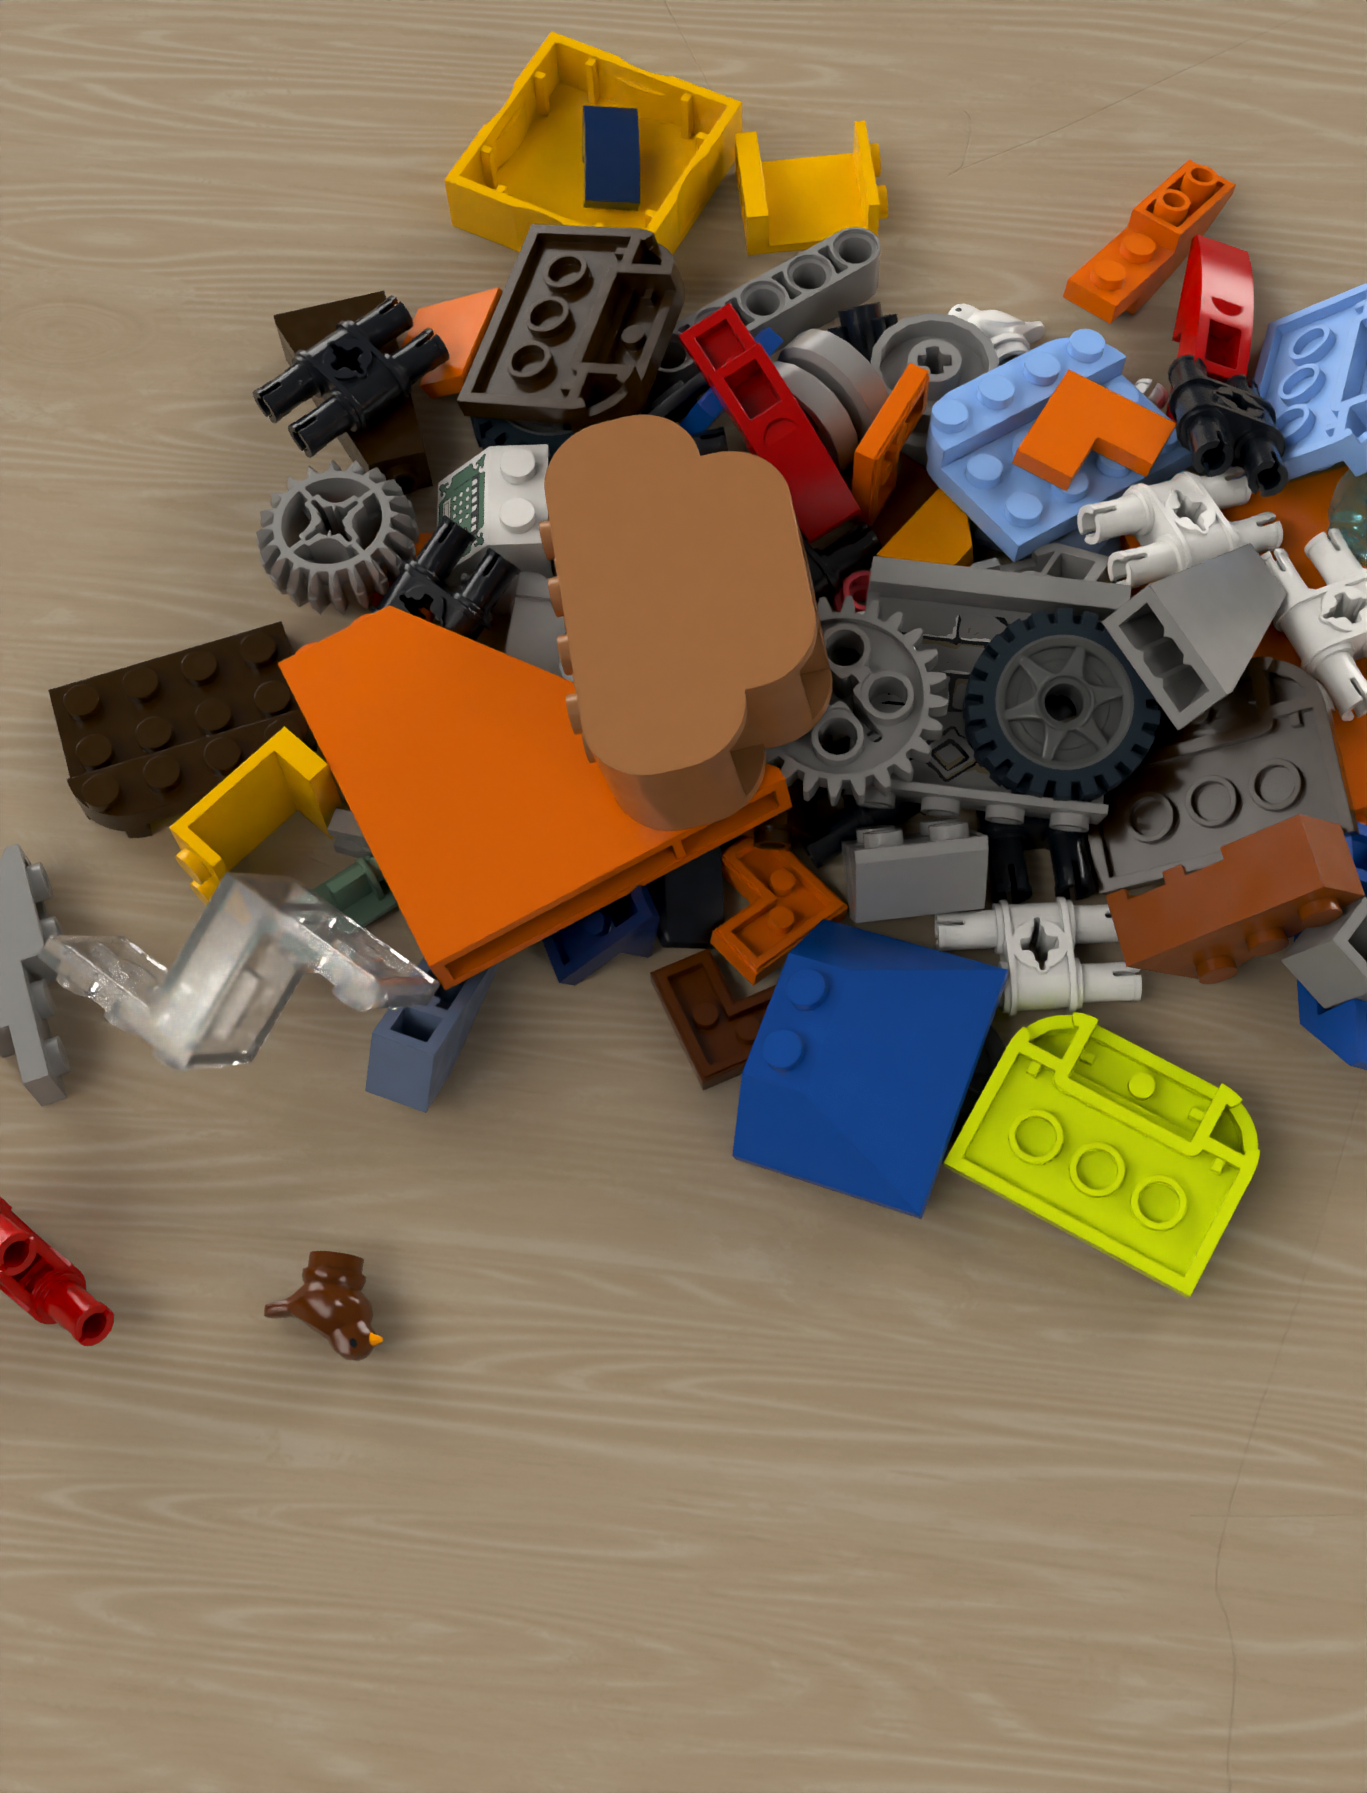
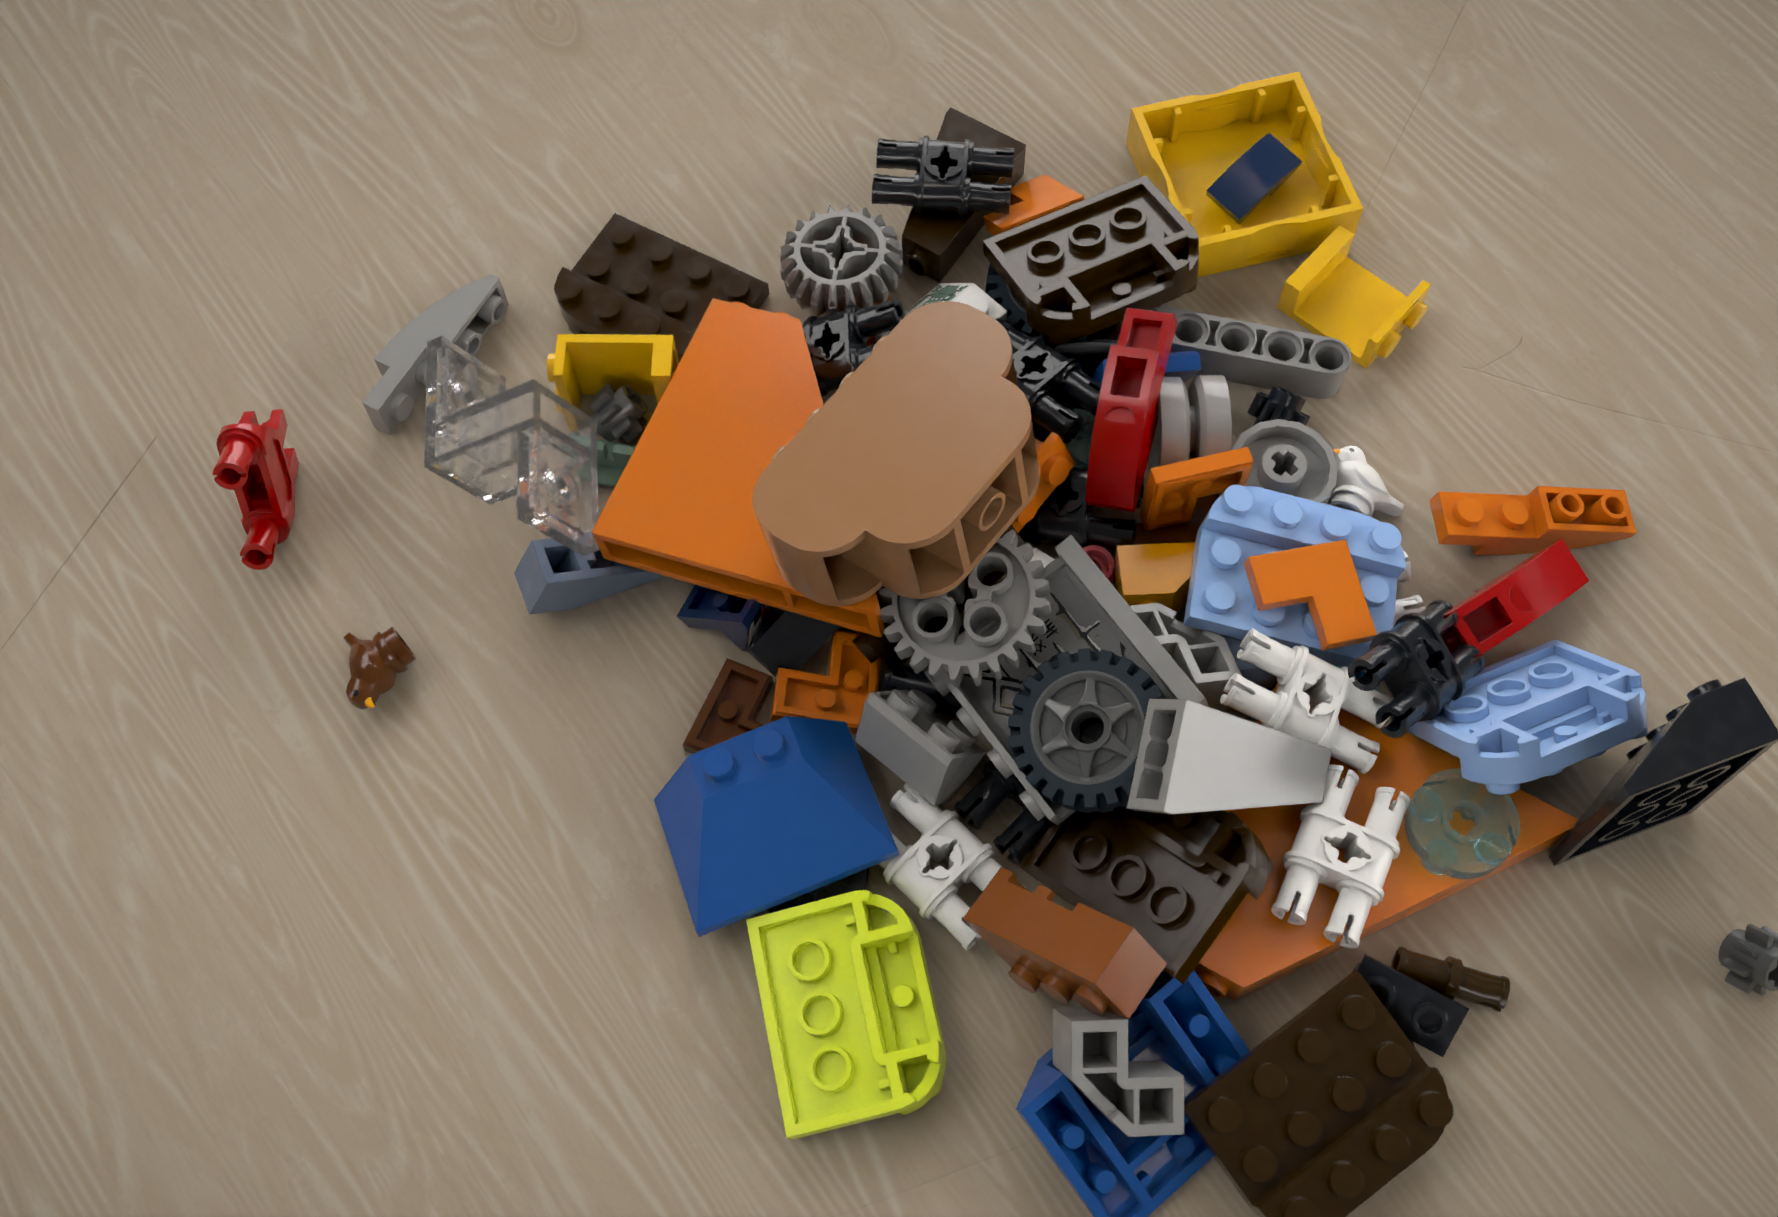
camera: 45 degrees right, 0 degrees up
(288, 853) = (618, 413): none -> dark grey gear

